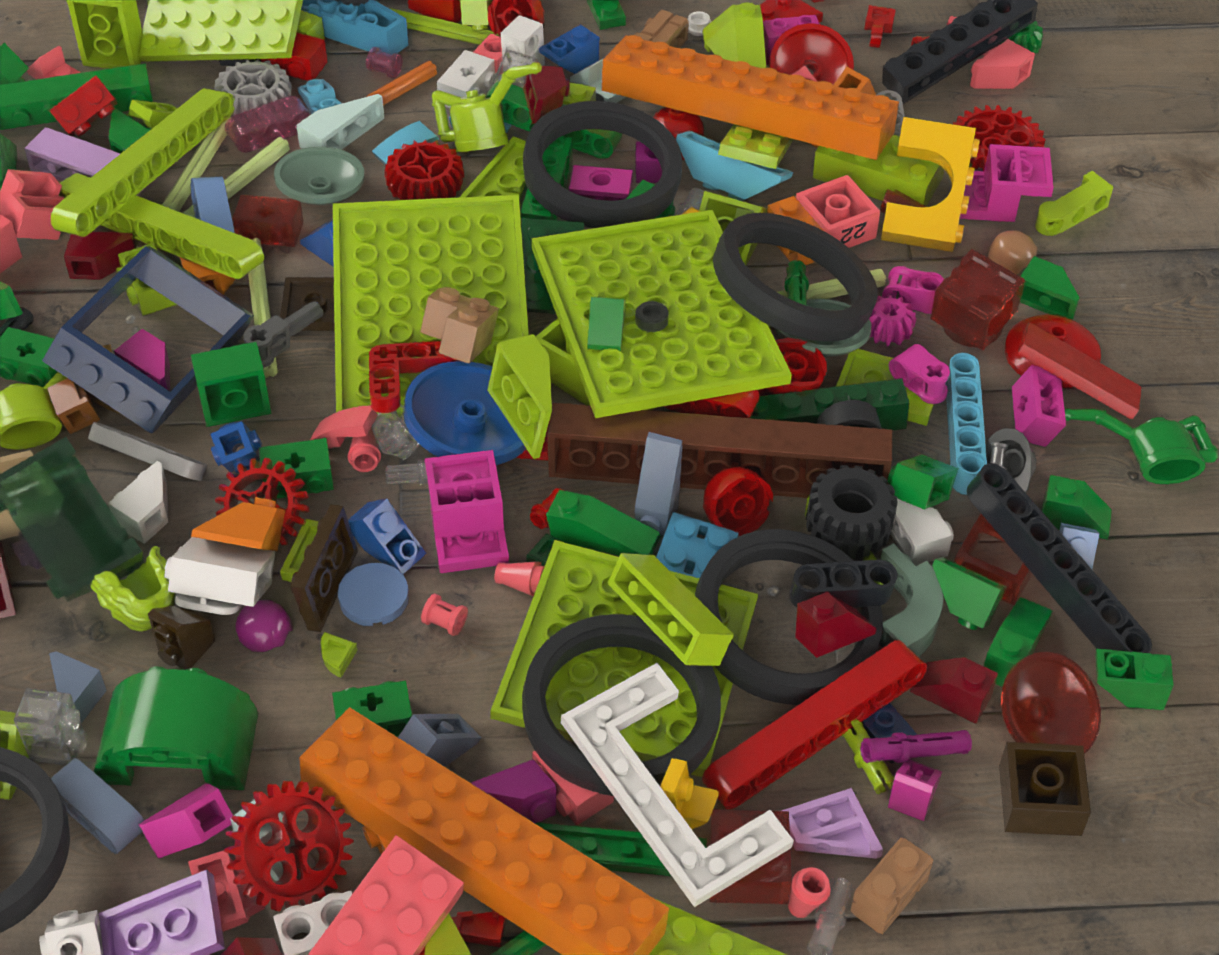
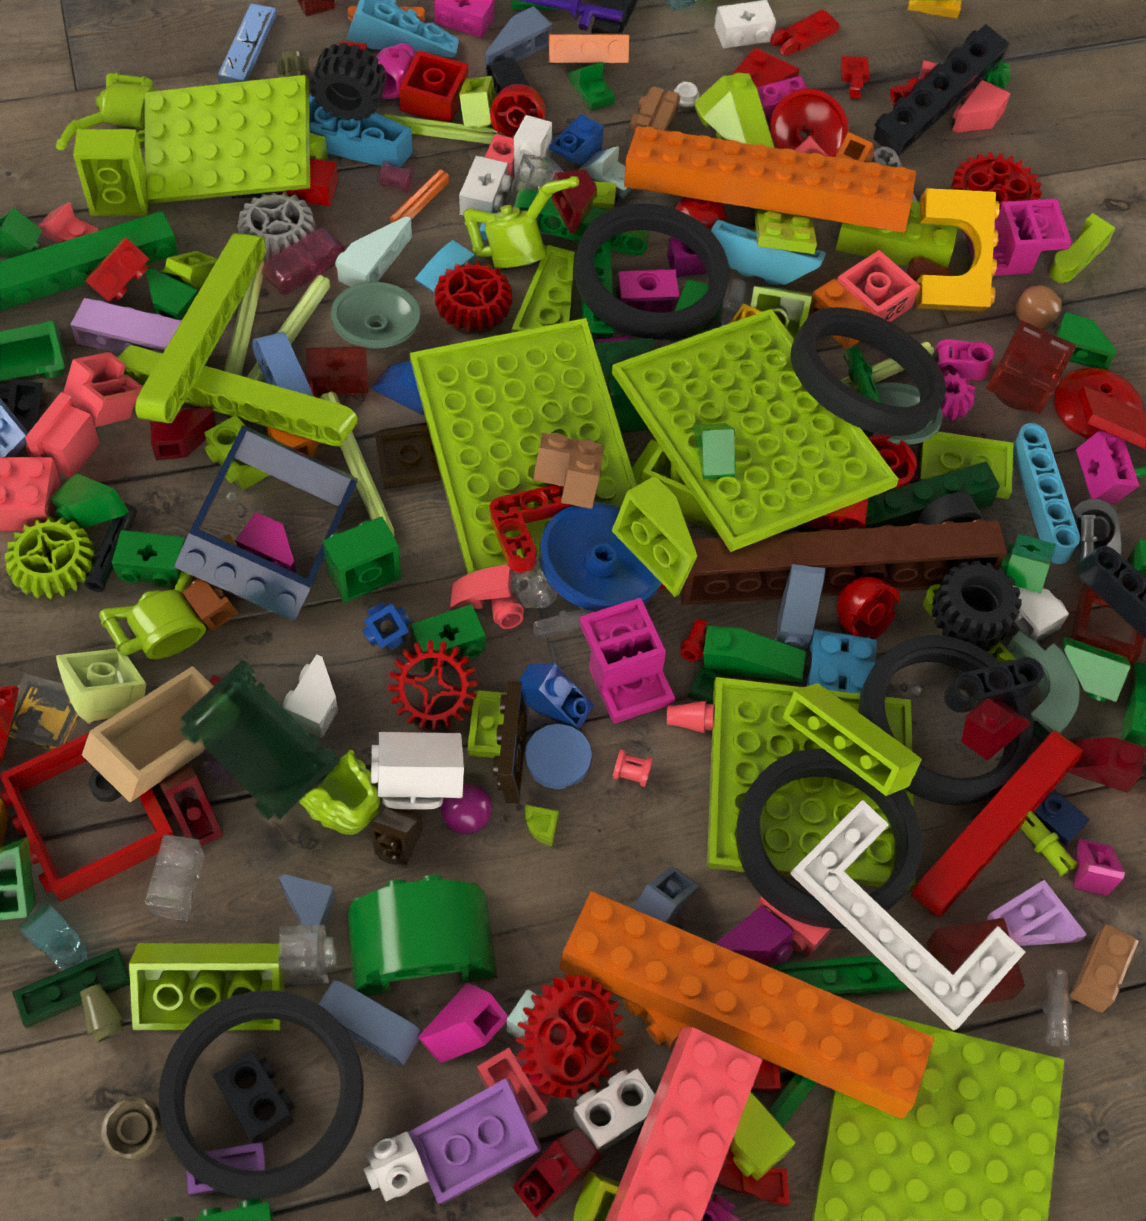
camera: 15 degrees left, 10 degrees up
(147, 451) = (298, 642): light grey beam -> none
(246, 525) = (431, 717): orange slope -> none
(275, 333) = (389, 497): dark grey connector -> none
(318, 95) = (344, 224): medium azure slope -> none
(382, 704) = (608, 865): green brick -> none
(651, 316) = (754, 437): pearl dark grey tile -> none
(691, 801) = (917, 921): yellow slope -> none
(808, 891) = (1040, 990): coral cone -> none
(902, 746) = (1079, 833): magenta pin -> none
(921, 373) = (997, 448): dark pink piece -> none

